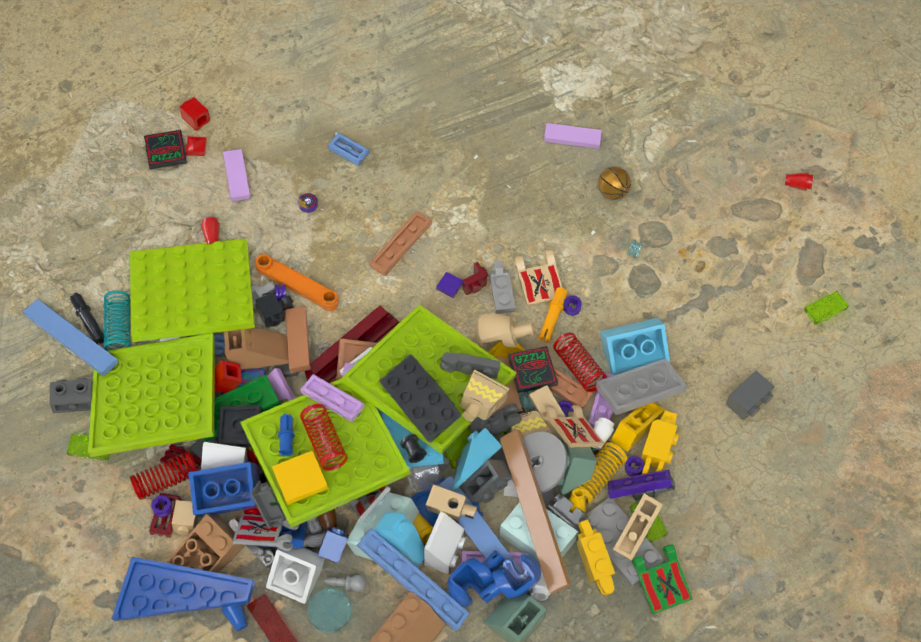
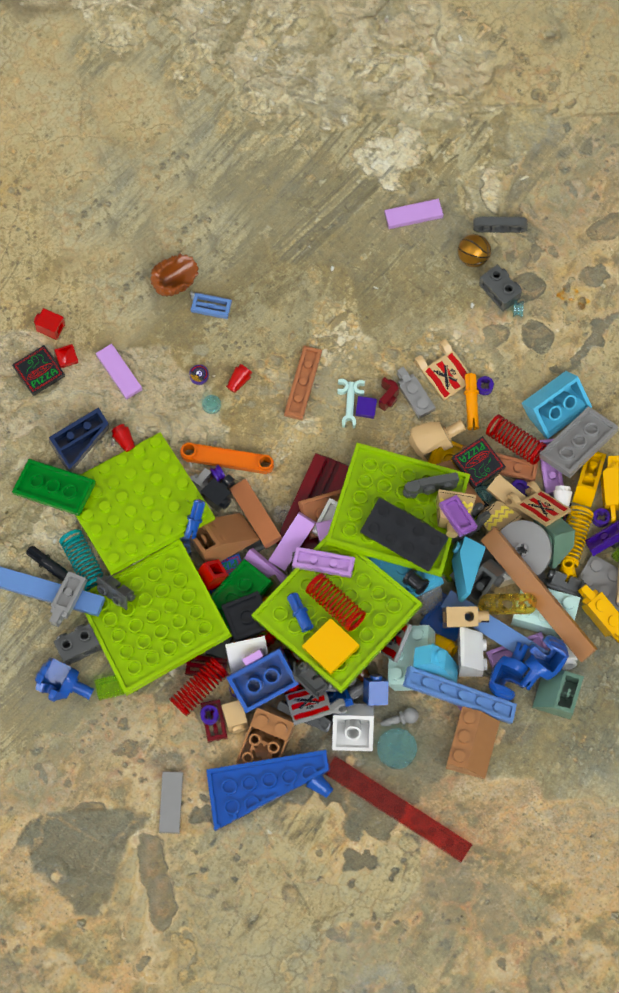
camera: 20 degrees left, 10 degrees up
(37, 421) = (60, 681): none -> blue piece
(80, 347) = (66, 597): none -> light grey hinge
(84, 576) = (171, 802): none -> light grey tile
(124, 249) = (54, 487): none -> green tile
(129, 357) = (109, 586): none -> dark grey hinge
(168, 216) = (78, 438): none -> dark blue wedge
(224, 462) = (253, 657): none -> lavender tile
(232, 316) = (194, 518): none -> blue axle
(306, 231) = (211, 404): none -> clear light blue plate
(323, 368) = (293, 538): none -> lavender tile
(325, 109) = (174, 275): none -> dark orange piece
(342, 217) = (239, 377): none -> red cone
(441, 264) = (351, 389): none -> light aqua bar
(480, 399) = (458, 515): none -> medium lavender tile
(508, 505) = (521, 597): none -> clear yellow beam
(625, 224) = (500, 287): none -> dark grey brick
(659, 173) = (500, 224): none -> dark grey beam

